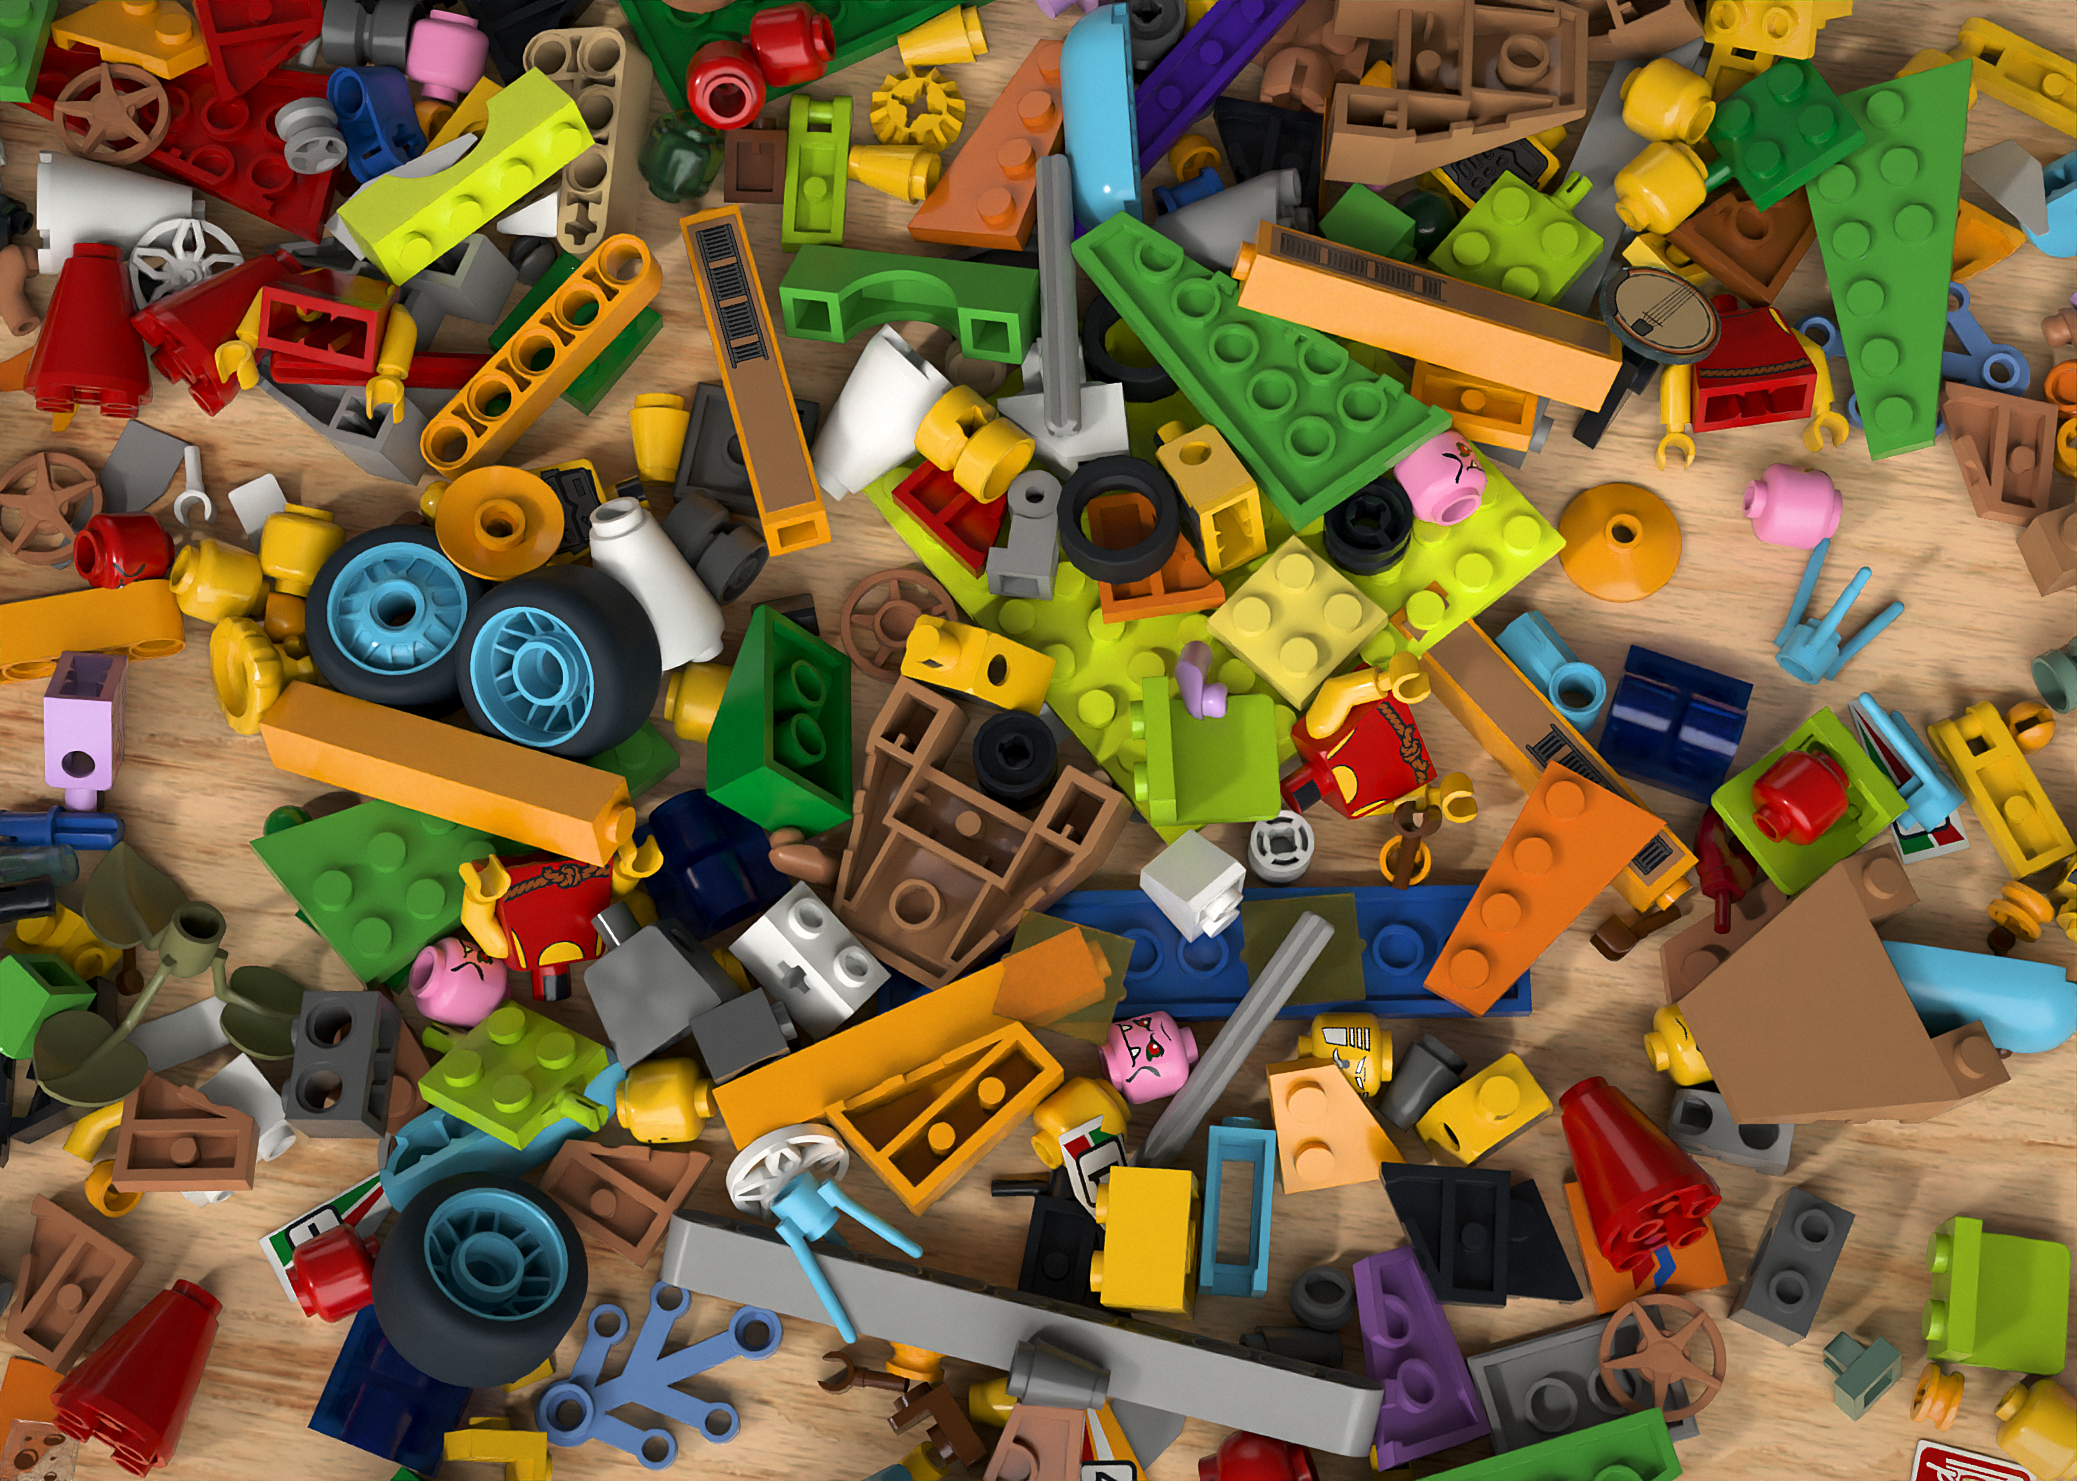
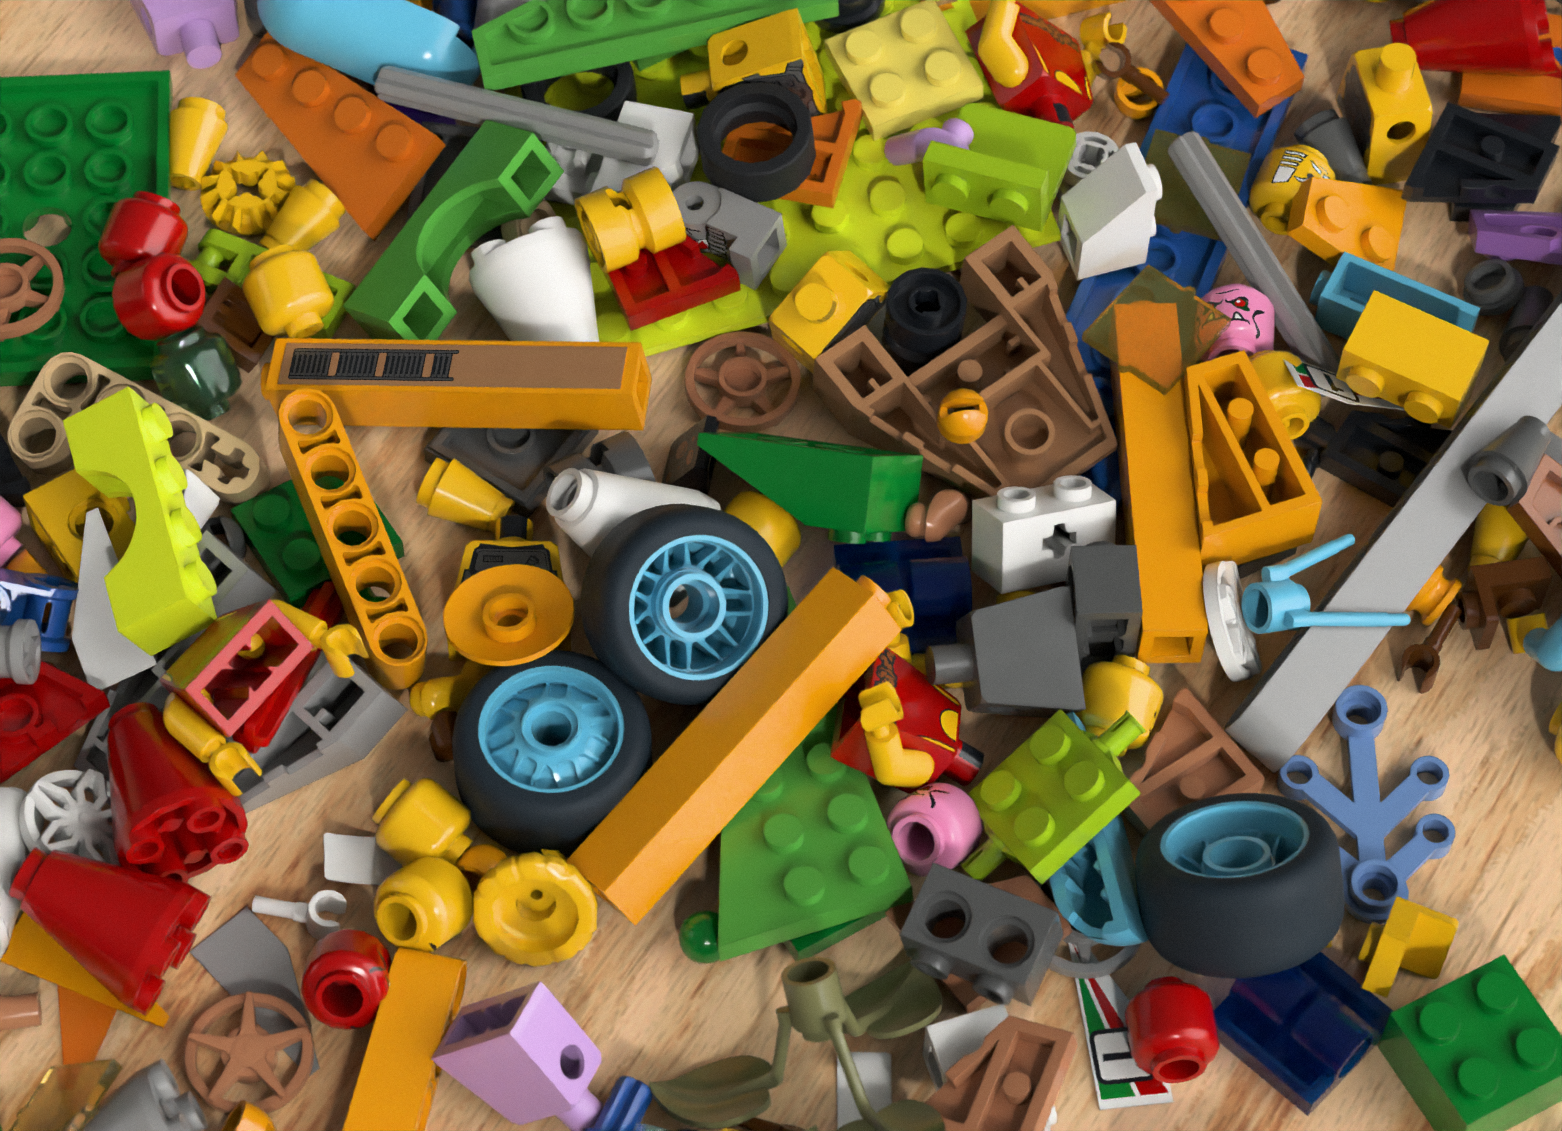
camera: 70 degrees left, 15 degrees down
(784, 190) = (288, 292): none -> yellow head
(908, 829) = (963, 425): none -> light orange hinge

